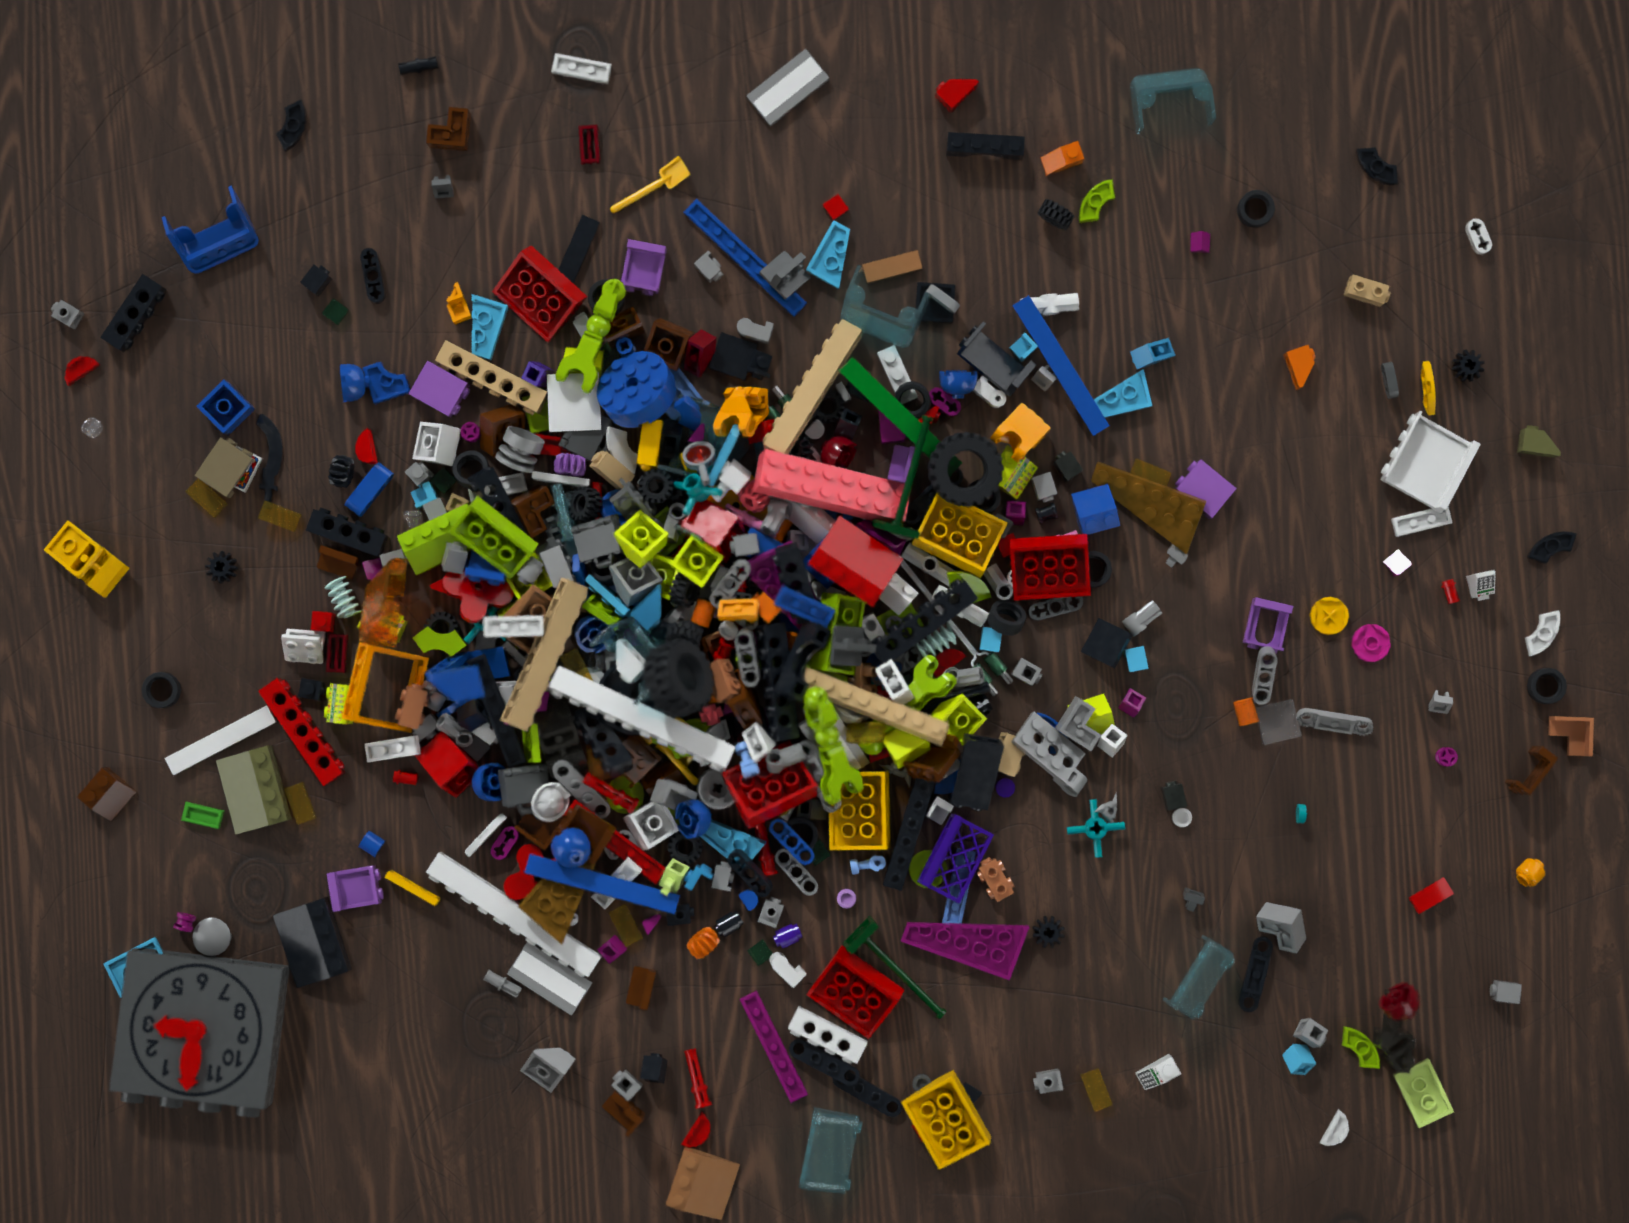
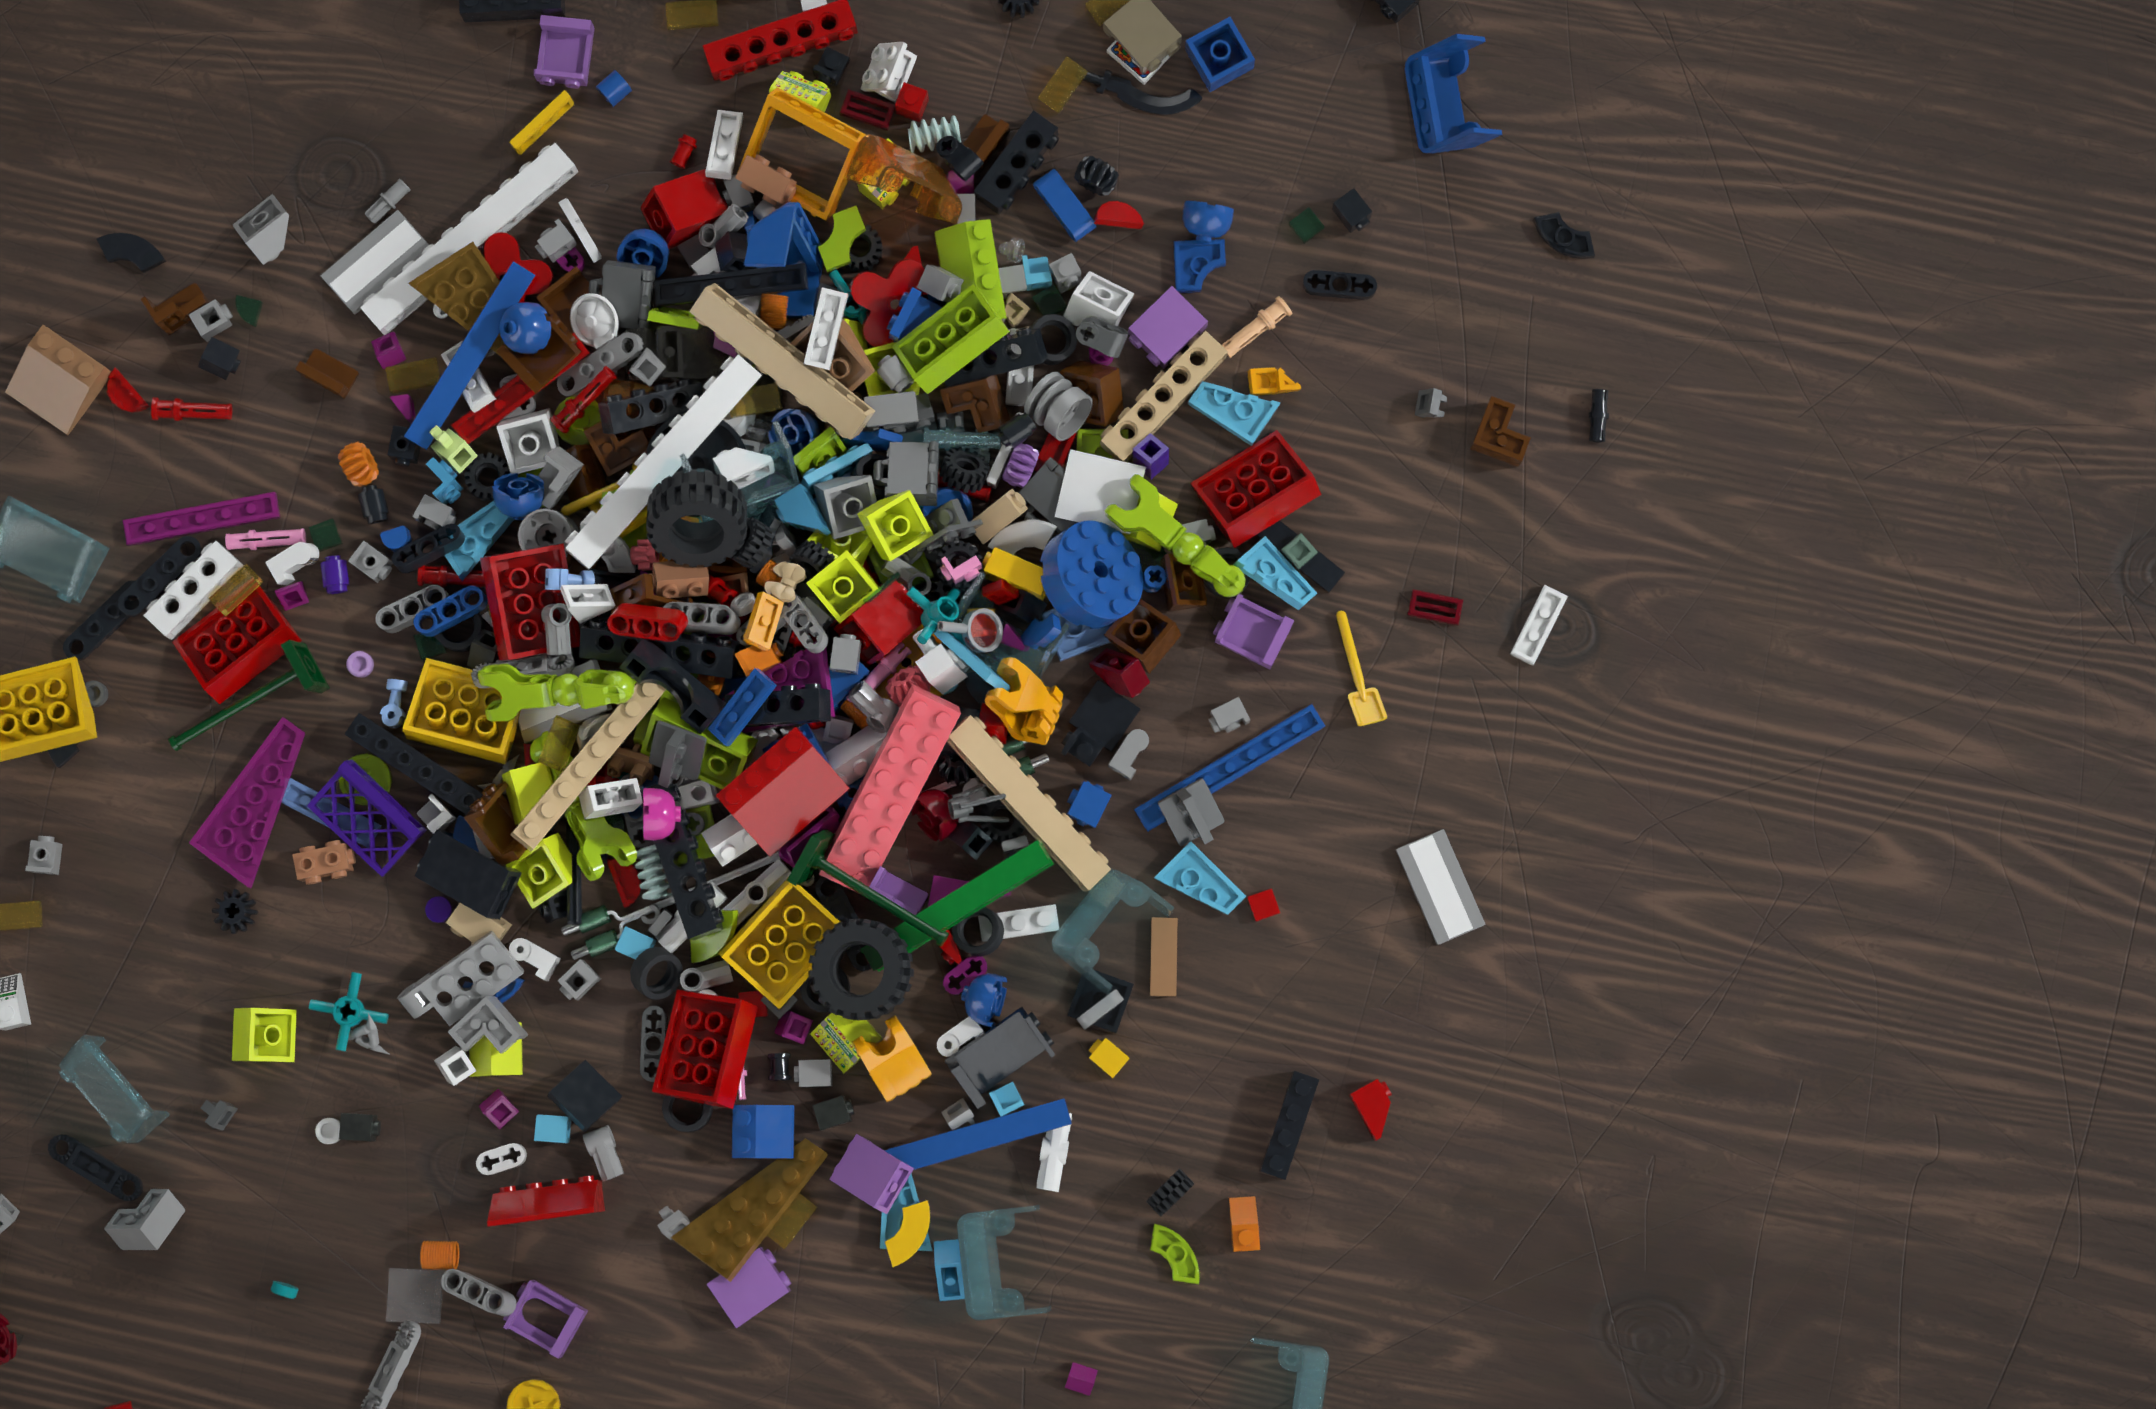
camera: 110 degrees right, 5 degrees down
(356, 573) = (958, 157): none -> black piece
(413, 321) = (1265, 320): none -> light nougat pin
(460, 429) = (1105, 337): none -> dark grey piece
(499, 849) = (555, 242): none -> light grey brick
(507, 674) = (774, 310): none -> orange piece
(546, 473) = (1016, 430): none -> black brick
(575, 752) = (647, 367): none -> light grey slope
(576, 250) = (1299, 551): none -> sand green tile
(589, 1161) = (130, 248): none -> black tile
(597, 263) = (1275, 573): none -> medium azure wing
(610, 1060) = (248, 309): none -> clear green tile
(660, 476) = (967, 570): none -> bright pink bracket
(667, 452) = (1000, 592): none -> red tile
(698, 601) = (791, 576): none -> tan piece
(762, 691) = (637, 626): none -> red beam
(784, 1015) = (234, 541): none -> bright pink pin
(800, 349) = (1087, 804): none -> blue head
(810, 962) = (292, 595): none -> magenta slope
(818, 1004) = (236, 590): none -> clear yellow tile
(829, 434) = (960, 807): none -> dark grey plant
(897, 643) = (659, 813): none -> dark pink cylinder
(966, 677) = (595, 896): light grey piece -> none
(968, 627) = (659, 921): none -> light grey tile
(973, 285) = (1108, 1057): none -> yellow brick
(1018, 707) = (529, 952): none -> white leg
(1103, 425) = (871, 1174): none -> medium lavender panel
(1129, 883) = (264, 1035): none -> neon yellow slope
(1136, 386) = (911, 1234): none -> yellow tile
(1163, 692) = (499, 1153): none -> white beam
(1164, 322) = (981, 1266): none -> clear light blue windscreen
(1189, 646) = (546, 1202): none -> red slope

